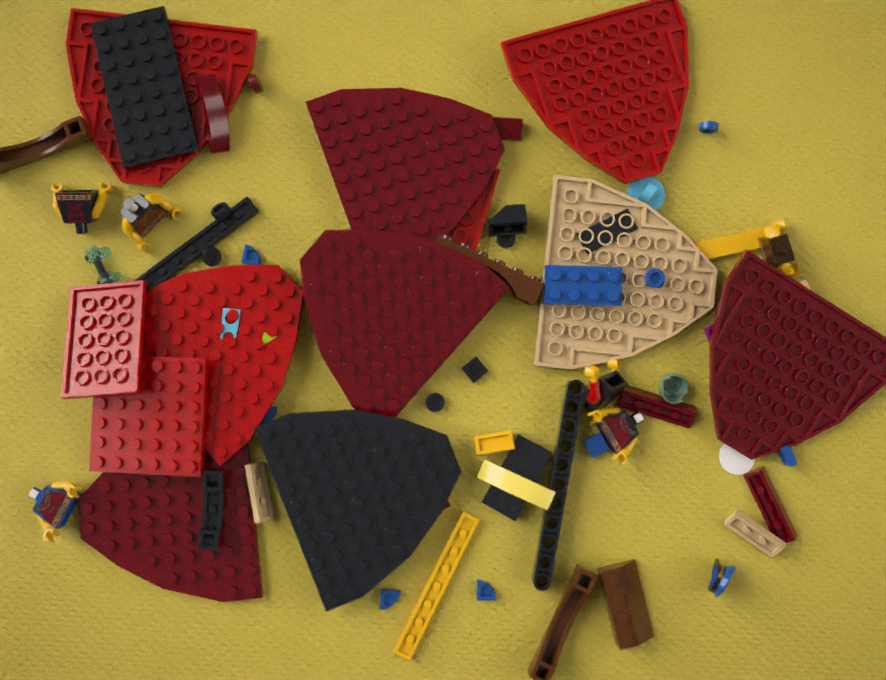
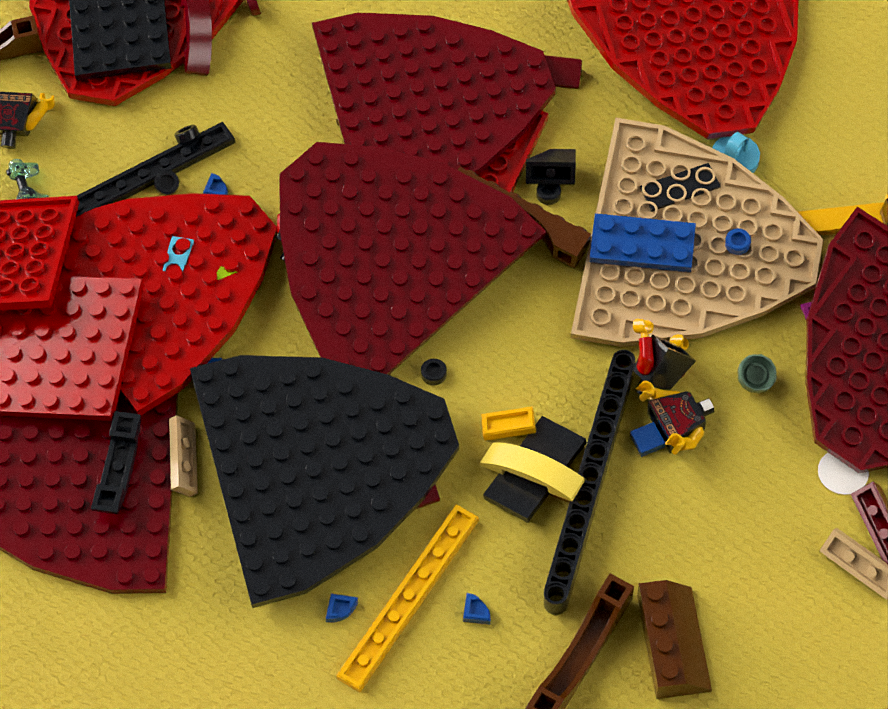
camera: 10 degrees right, 25 degrees down
(143, 214) = (89, 127): torso -> none
(474, 369) = (491, 337): black tile -> none
(655, 406) = (735, 400): dark red slope -> none
(708, 127) = (820, 86): blue tile -> none
(720, 577) = (810, 612): piece -> none

